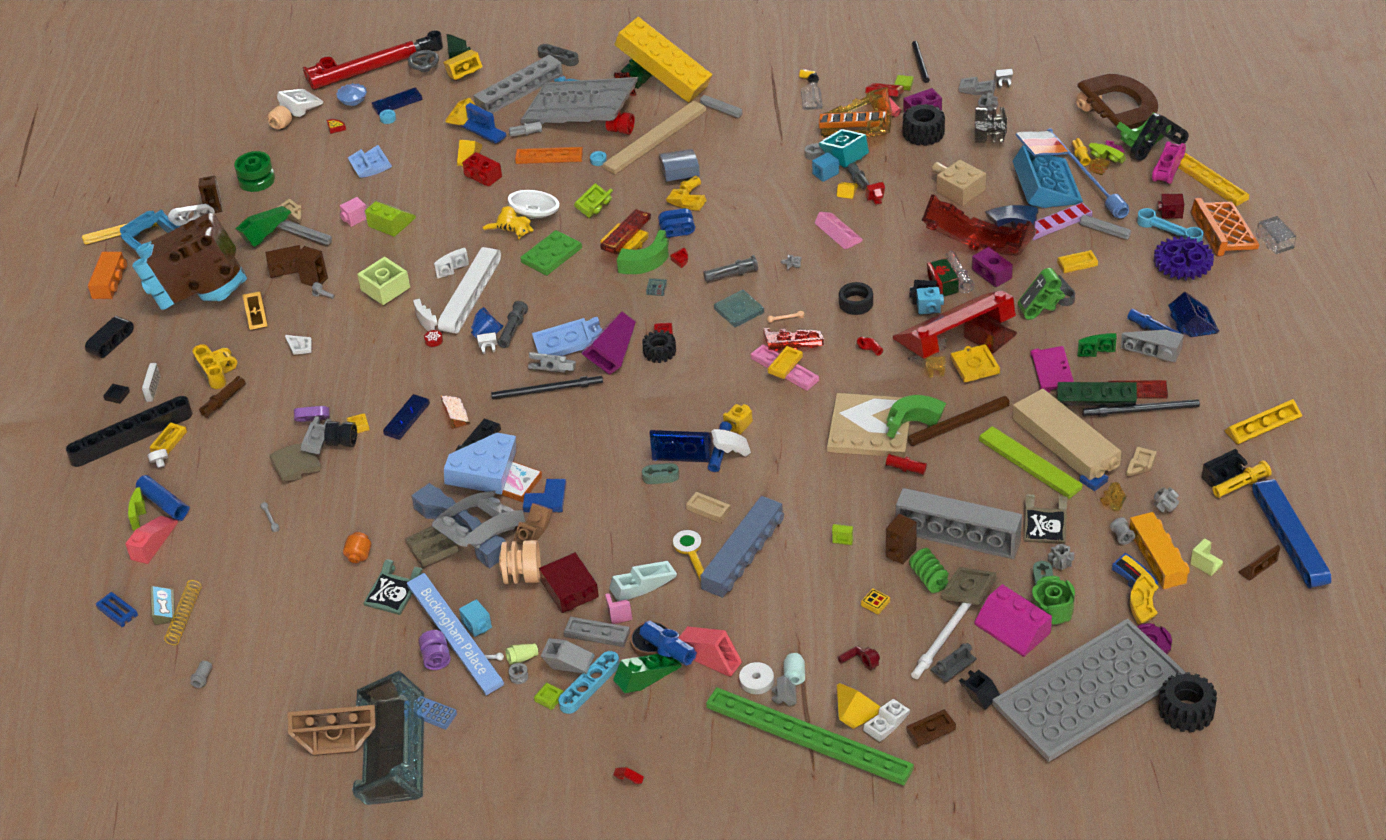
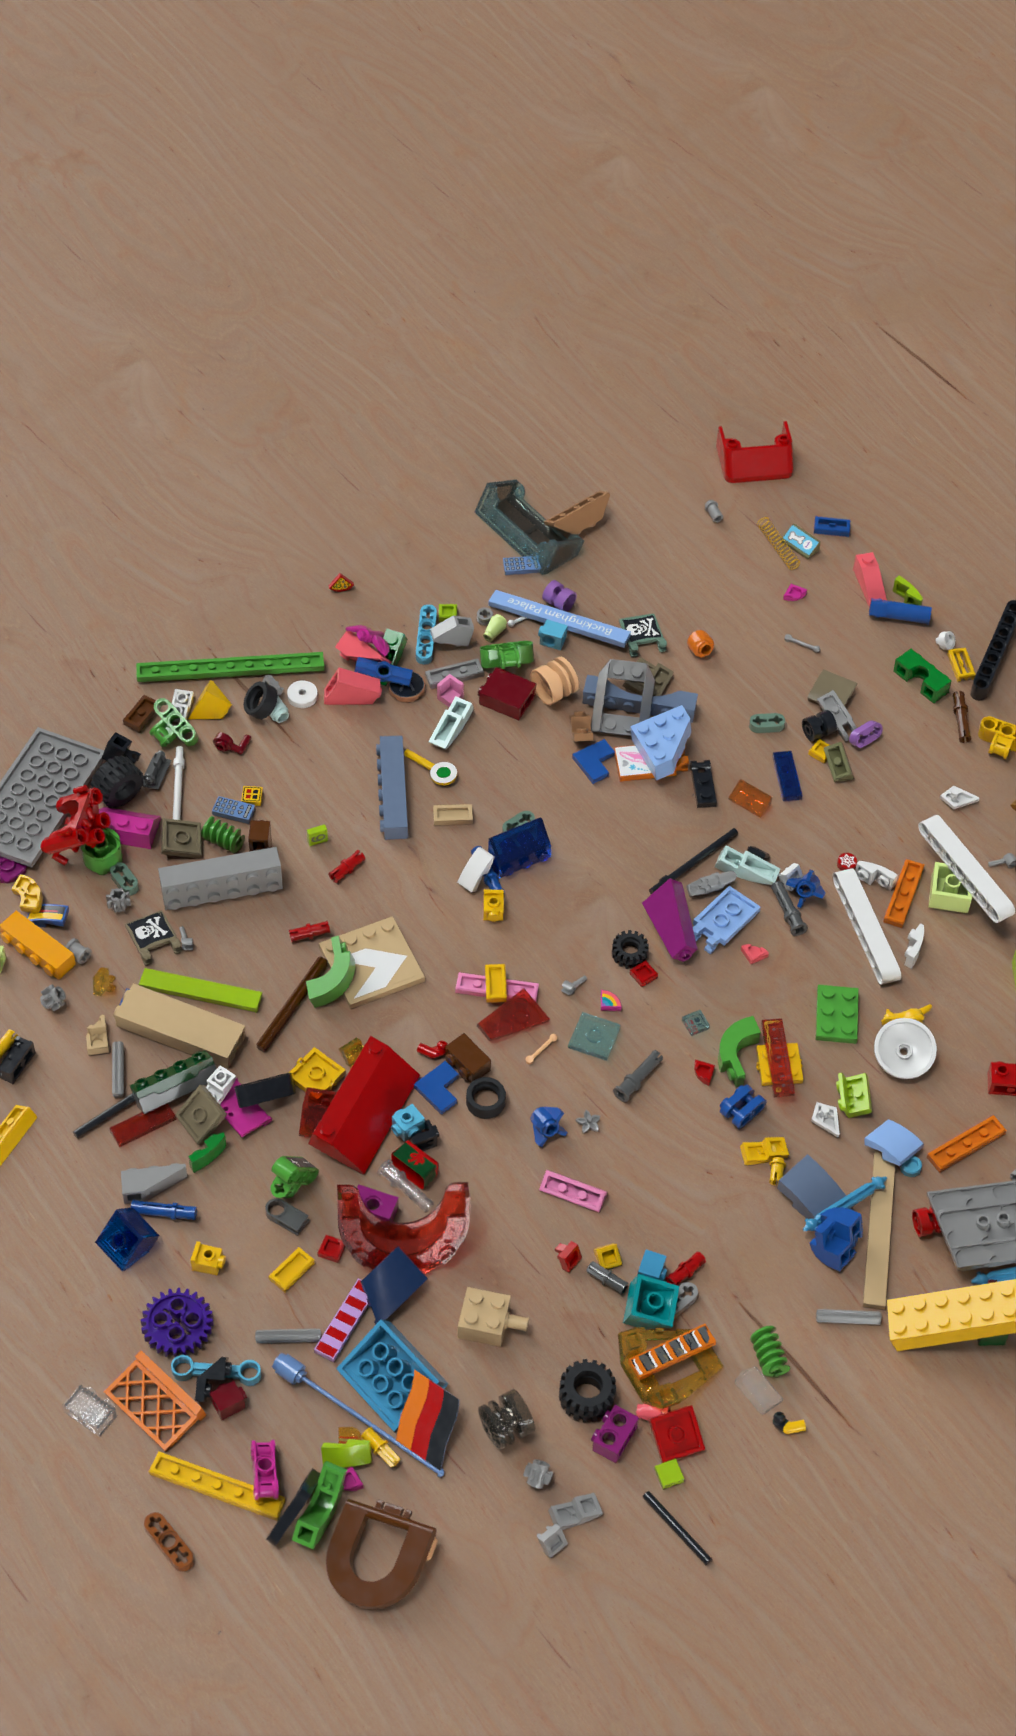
camera: 140 degrees right, 10 degrees up
(125, 707) = (756, 462): none -> red windscreen
(210, 442) = (913, 665): none -> green arch
(224, 563) = (794, 593): none -> dark pink tile
(356, 403) = (838, 762): none -> olive slope
(366, 268) = (966, 869): none -> white beam
(376, 461) = (767, 723): none -> sand green beam
(406, 307) = (903, 893): none -> orange tile
(493, 369) = (760, 853): none -> black slope
(512, 363) = (747, 866): none -> light aqua slope
(539, 604) = (507, 654): none -> bright green beam
(568, 311) = (754, 953): none -> coral tile
(598, 166) = (894, 1142): none -> light blue slope
(625, 200) = (826, 1118): none -> white piece
(656, 669) = (374, 637): none -> dark pink plant
(666, 146) = (849, 1200): none -> dark azure wheel
(671, 675) = (353, 648): none -> coral slope
(689, 132) = (837, 1237): none -> blue brick
(707, 323) = (609, 1001): none -> tile
(727, 342) = (569, 987): none -> light grey hand
(789, 102) = (768, 1352): none -> bright green piece
(795, 674) = (268, 701): none -> black tyre
(800, 161) = (686, 1269): none -> red pin
(826, 262) = (546, 1123): none -> blue brick
(834, 502) = (346, 866): none -> red pin
(849, 324) = (467, 1058): none -> reddish brown brick
(888, 324) = (434, 1086): none -> blue tile
(902, 596) = (233, 810): none -> medium blue tile
(909, 689) = (167, 729): none -> bright green beam
(1002, 645) = (118, 781): none -> black tyre
(1016, 361) = (265, 1090): none -> black beam
(1019, 501) = (187, 943): none -> light grey hand
(1039, 262) = (331, 1249): none -> red tile
(1061, 373) = (220, 1083): none -> white slope
(1085, 589) = (82, 827): none -> red piece
(1088, 363) = (201, 1114): none -> dark tan tile
(1136, 432) = (118, 1069): none -> light grey axle
(1138, 284) = (208, 1265): none -> yellow brick
(1177, 214) = (217, 1371): none -> black slope
(1253, 166) = (167, 1551): none -> dark orange beam

